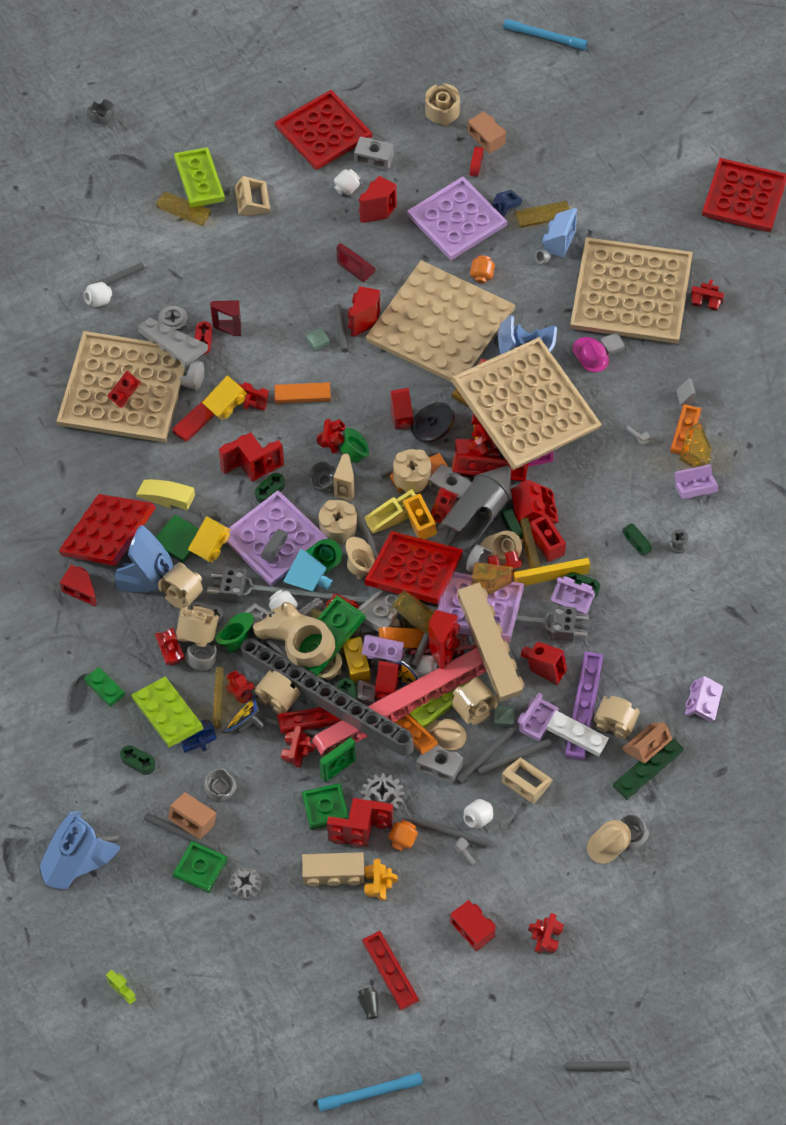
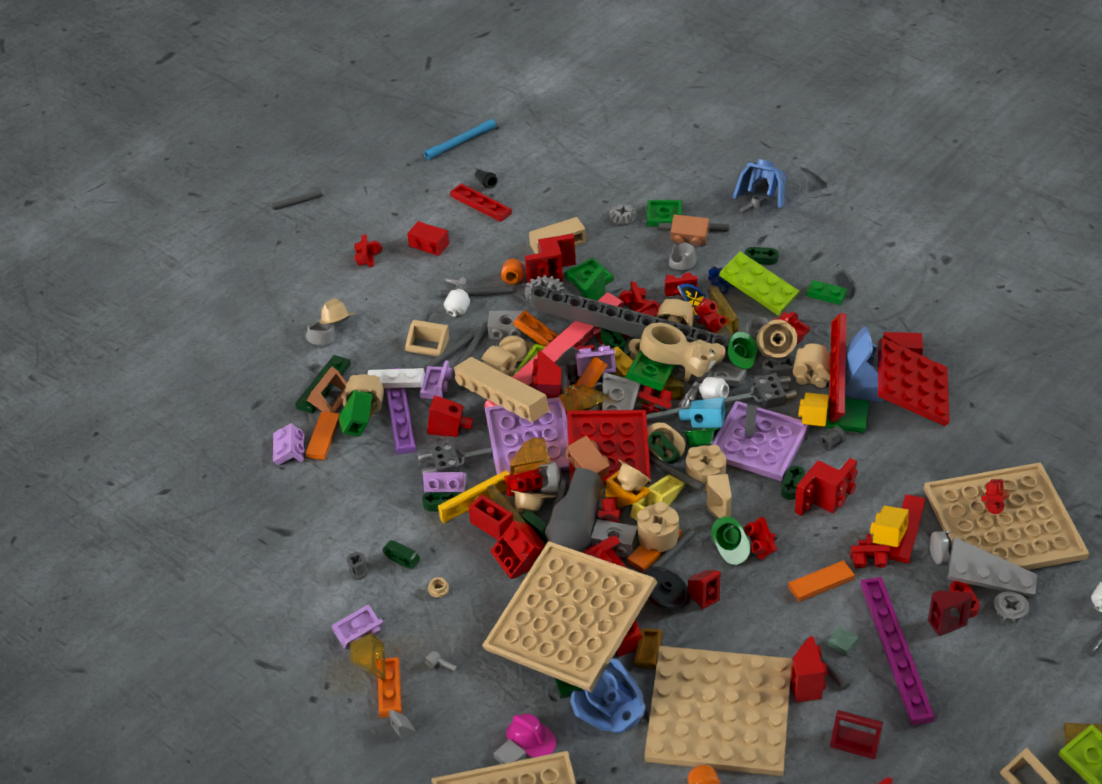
camera: 160 degrees right, 15 degrees down
(118, 983) = (676, 132): lime plate -> none
(166, 493) = (885, 439): light yellow slope -> none
(166, 559) = (837, 368): none -> red tile
(244, 744) = (671, 283): none -> red hips
(282, 317) = (897, 651): none -> magenta plate
(322, 475) = (745, 503): dark grey hair -> none
(365, 547) = (660, 450): none -> dark green beam
(382, 878) = (517, 242): light orange hips -> none
(414, 505) = (631, 478): none -> tan piece
(441, 549) = (586, 455): none -> nougat brick
(616, 495) = (438, 587): none -> tan plate
(635, 693) = (356, 413): none -> green slope
(667, 700) = (322, 435): none -> orange tile

